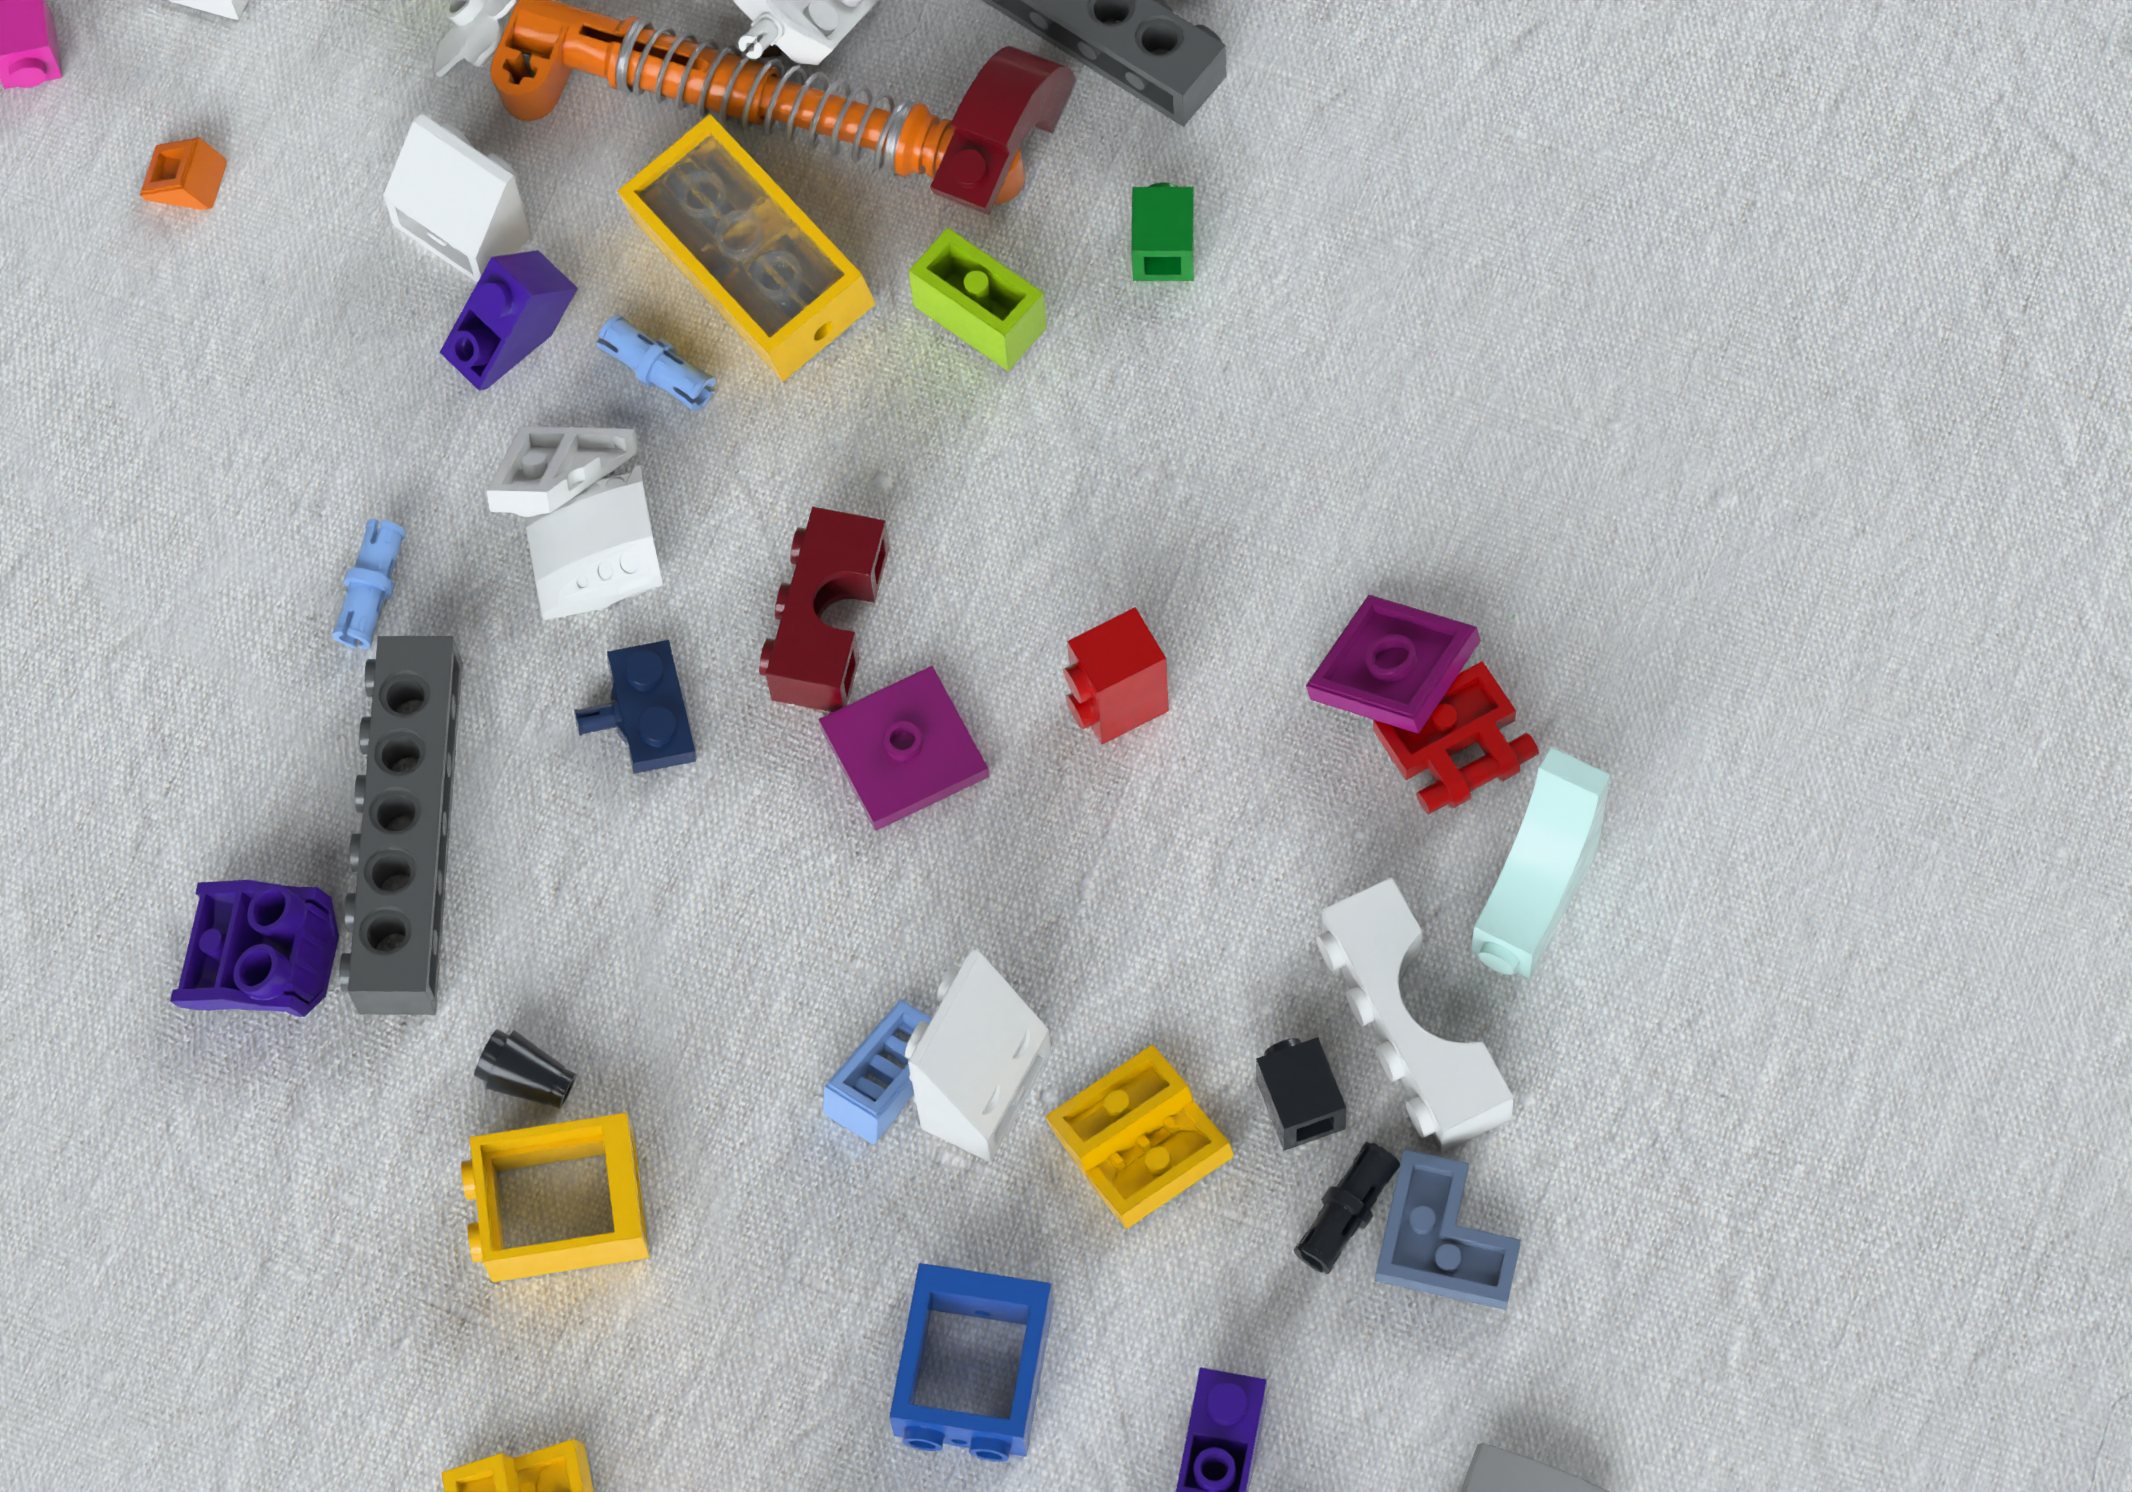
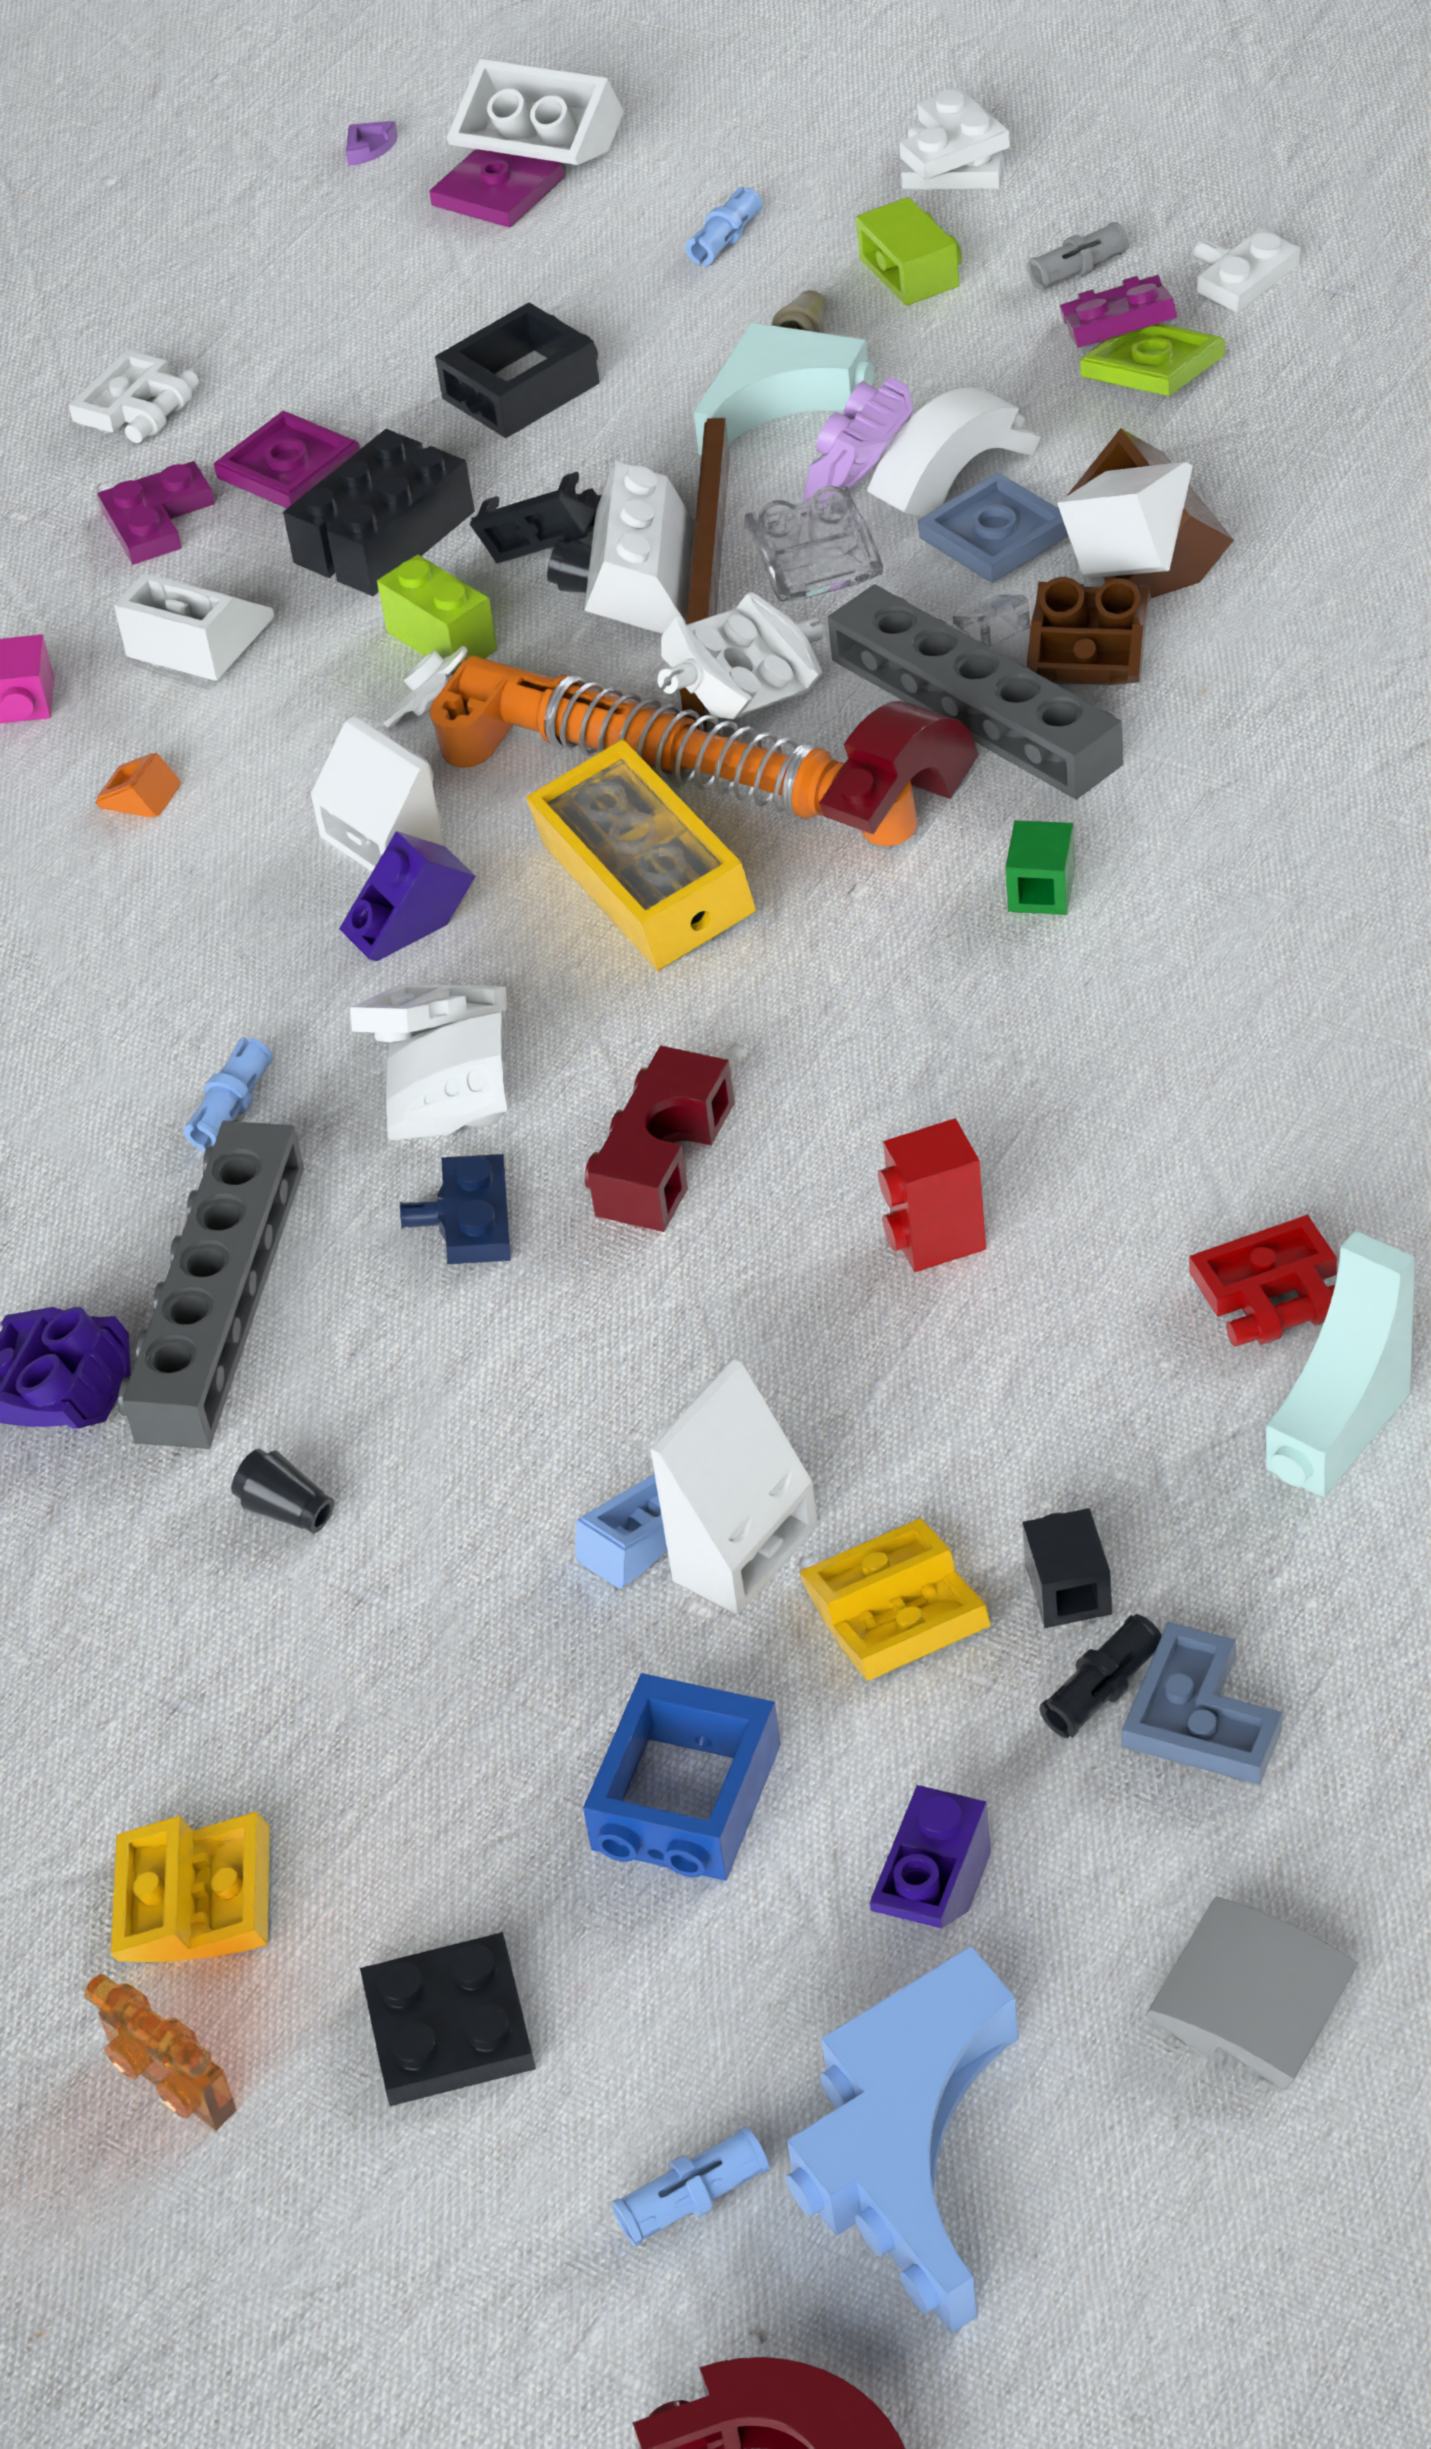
camera: 10 degrees right, 20 degrees down
(549, 1144) = (288, 1554): yellow window -> none
(656, 362) = (539, 943): light blue pin -> none
(904, 748) = (716, 1258): magenta plate -> none
(978, 299) = (852, 901): lime brick -> none
(1393, 663) = (1216, 1210): magenta plate -> none
(1450, 1083) = (1223, 1567): white arch -> none

